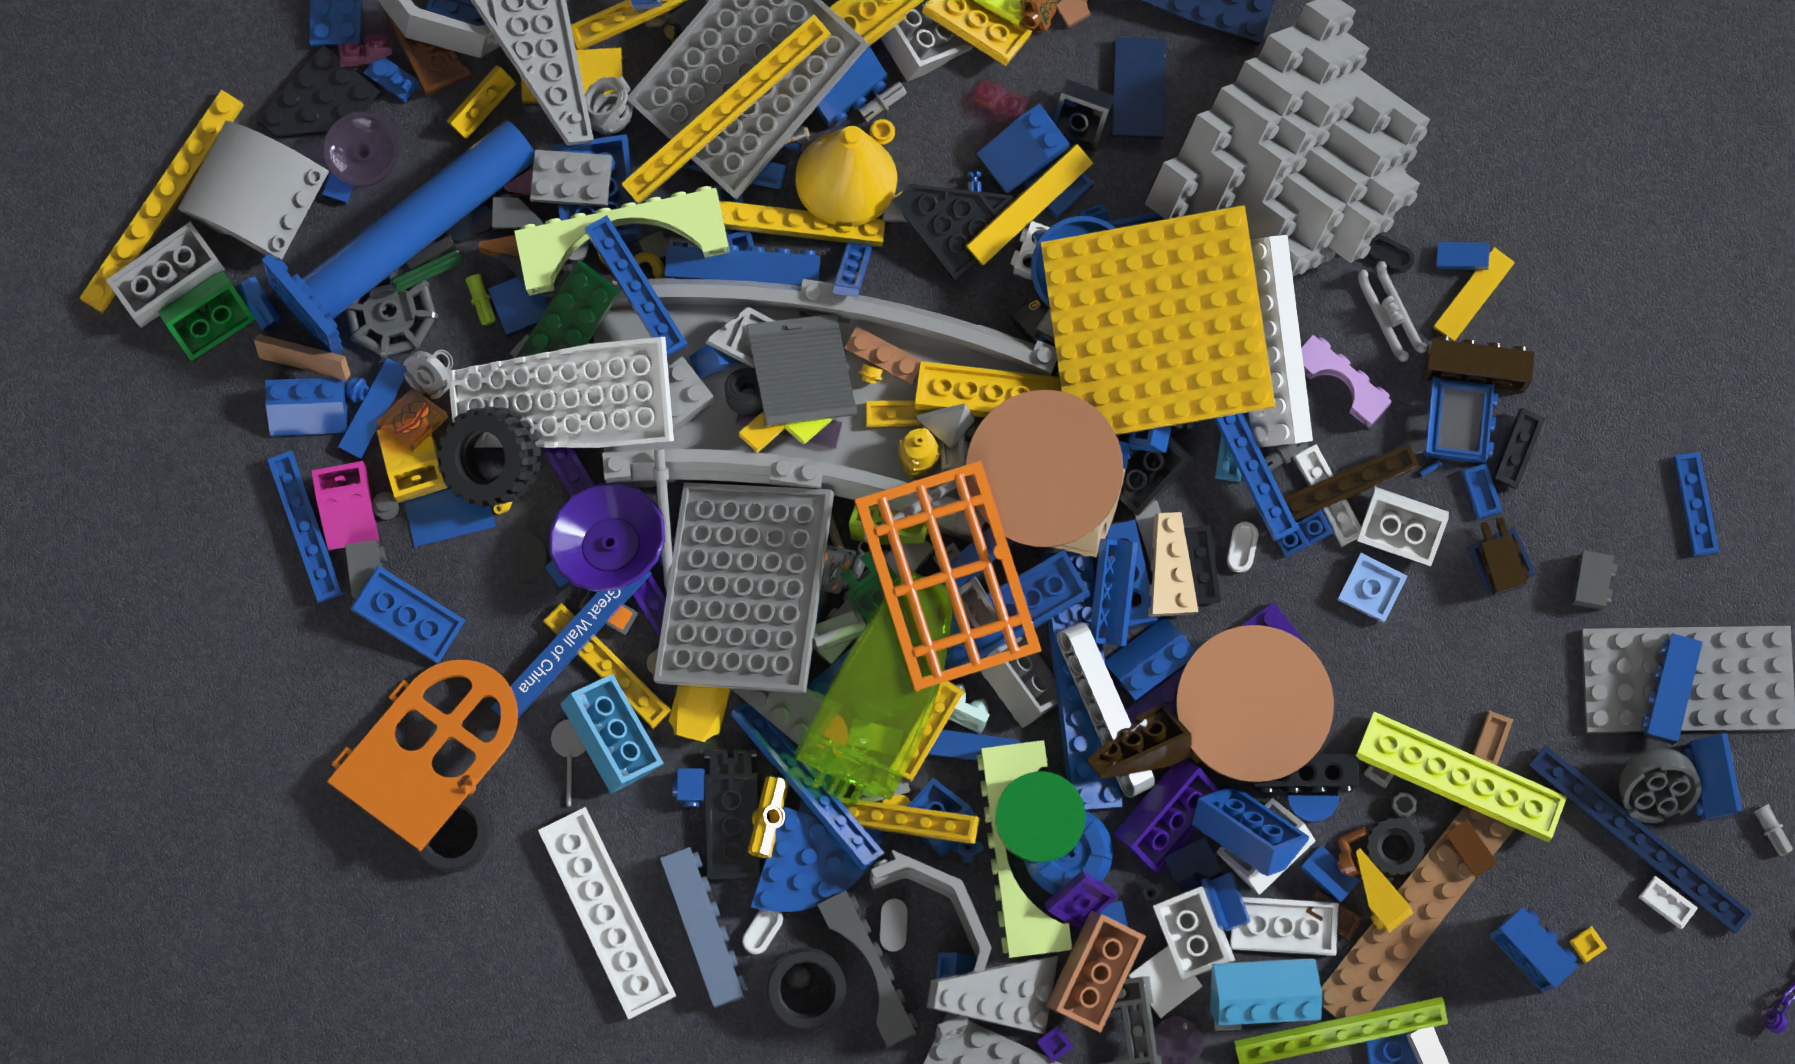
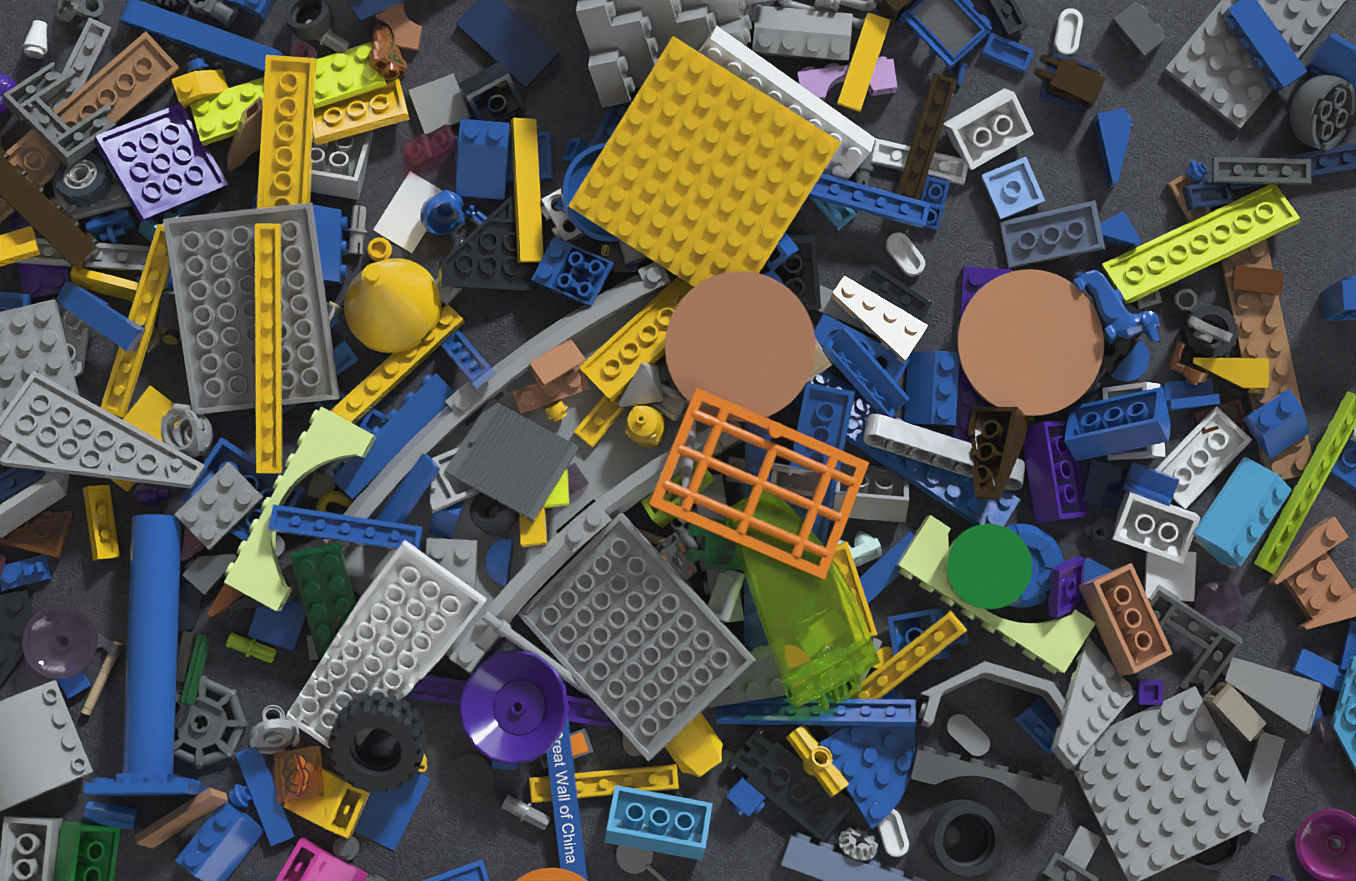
camera: 55 degrees left, 5 degrees up
(389, 197) = (114, 650): none -> tan piece
(531, 623) = (526, 812): none -> light grey axle
(535, 122) = (151, 495): none -> dark purple cylinder
(709, 312) = (410, 490): none -> blue tile
(714, 428) = (499, 560): none -> blue tile
(729, 916) = (863, 851): none -> light grey gear
(908, 339) = (555, 362): none -> nougat hinge
(934, 131) = (402, 218): none -> white sticker
(953, 155) = (443, 213): none -> blue hair
(992, 292) = (572, 272): none -> blue slope
(1040, 79) = (439, 103): none -> light grey tile
(1337, 749) = (1112, 311): none -> blue animal
(1348, 313) = (802, 33): none -> light grey slope
(1361, 650) = (1052, 235): none -> sand blue tile
(1365, 963) = (1278, 423): none -> blue slope
(1367, 379) = (863, 62): none -> yellow tile
(1389, 838) = (1208, 332): none -> light grey piece
(1411, 700) = (1120, 231): none -> blue slope
(1487, 634) = (1113, 136): none -> blue slope
(1506, 750) = (1206, 195): none -> dark blue tile
(1518, 726) = (1197, 172): none -> blue plate
(1542, 526) = (1068, 32): none -> white tile
(1564, 775) = (1261, 171): none -> dark grey plate

